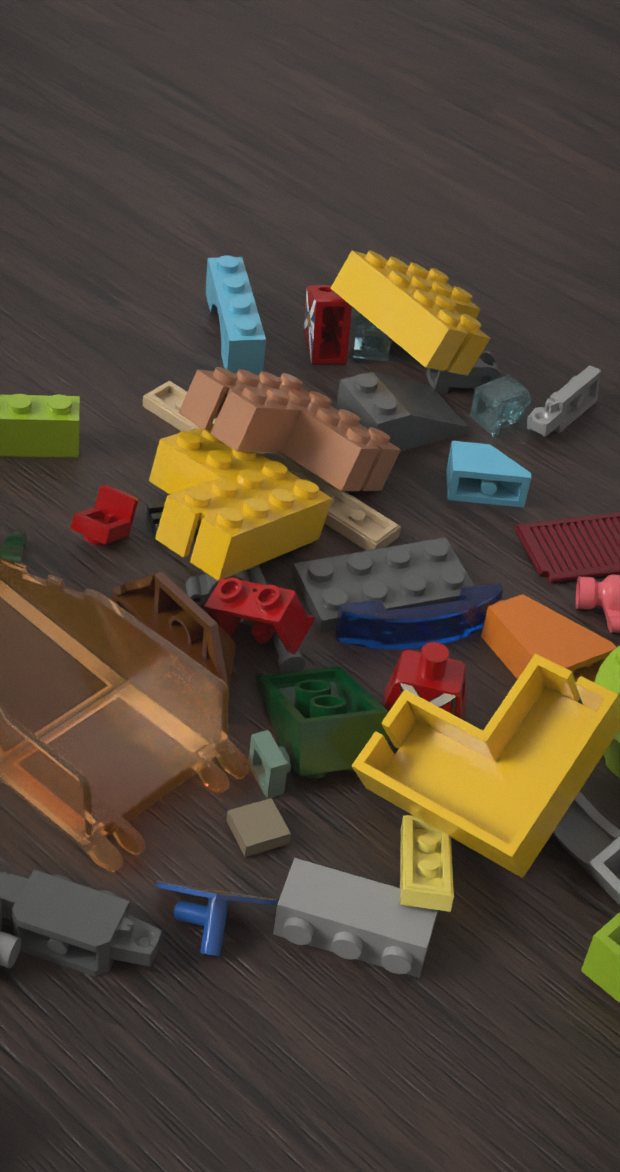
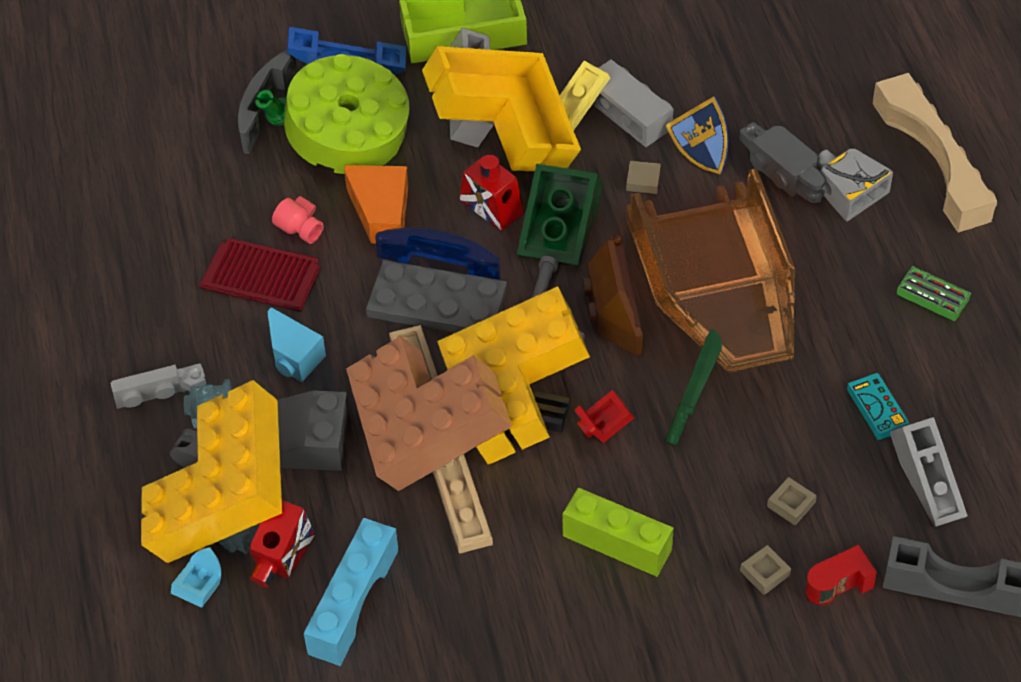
camera: 140 degrees left, 10 degrees up
(265, 604) = (553, 267): red window -> none
(268, 763) = (614, 199): sand green plate -> none

